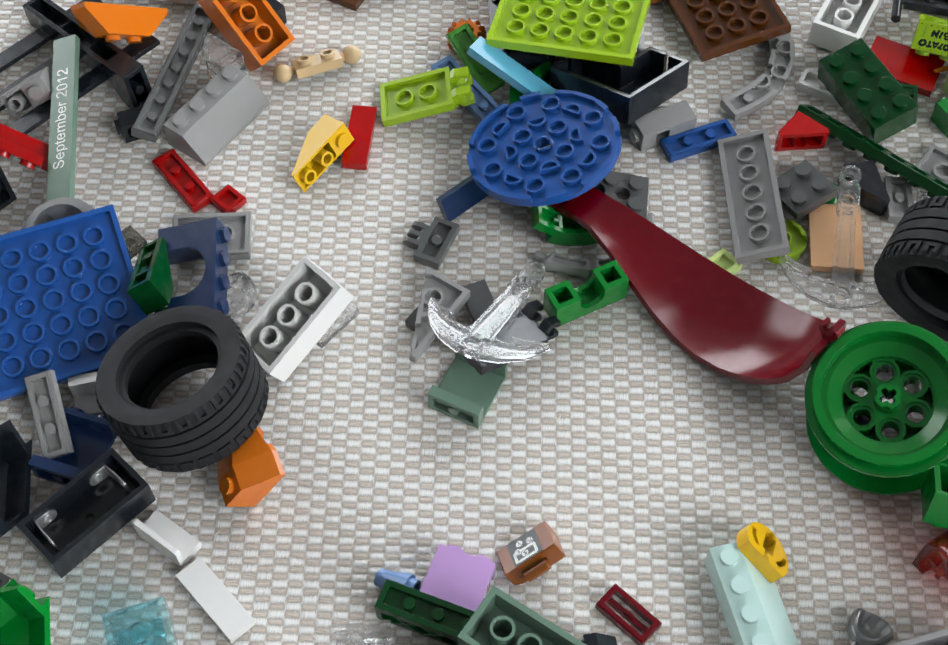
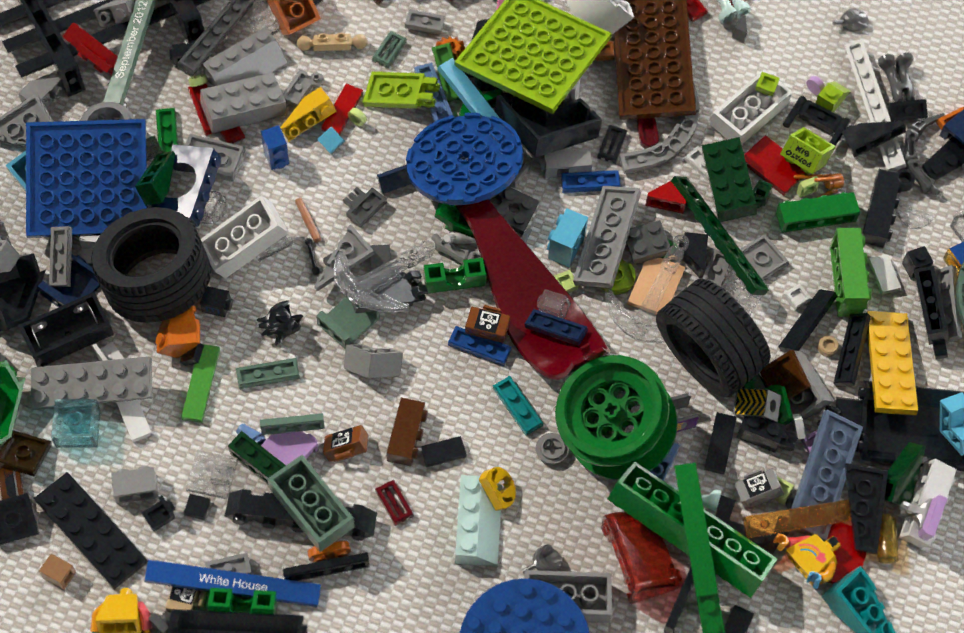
camera: 15 degrees right, 5 degrees up
(140, 215) = (166, 128): none -> green tile
(155, 569) = (99, 380): none -> light grey plate
(162, 148) = (198, 80): none -> yellowish green tile
(230, 158) = (242, 102): none -> light grey brick
(277, 497) = (192, 356): none -> black tile
(284, 415) = (216, 301): none -> black brick
(293, 200) = (275, 147): none -> blue brick
(297, 123) = (300, 87): none -> light grey hinge
(300, 531) = (200, 384): none -> bright green tile
(359, 175) = (331, 140): none -> medium azure tile
(366, 279) = (308, 220): none -> nougat piece
(378, 67) = (376, 57): none -> sand green tile
(381, 416) = (280, 322): none -> black hair
(382, 139) = (357, 117): none -> yellowish green tile
(386, 490) = (267, 373): none -> sand green tile
(400, 338) = (315, 270): none -> black hinge
(422, 13) = (424, 22): none -> light grey plate
(454, 548) = (292, 424): none -> sand green tile
(523, 433) = (372, 361): none -> light grey panel
(570, 248) = (459, 238): none -> white animal
(607, 513) = (406, 432): none -> reddish brown brick
(651, 373) = (480, 347): none -> blue tile
(654, 341) = (487, 323): none -> dark orange piece
(664, 524) = (443, 451): none -> black tile
(704, 106) = (608, 156): none -> black tile
(706, 208) = (567, 237): none -> medium azure brick
(727, 293) = (553, 303): none -> clear brick
(734, 435) = (517, 405): none -> teal tile
(739, 68) = (647, 132): none -> dark red tile
(743, 320) = (556, 327): none -> dark blue tile
(807, 467) = (544, 443): none -> light grey gear

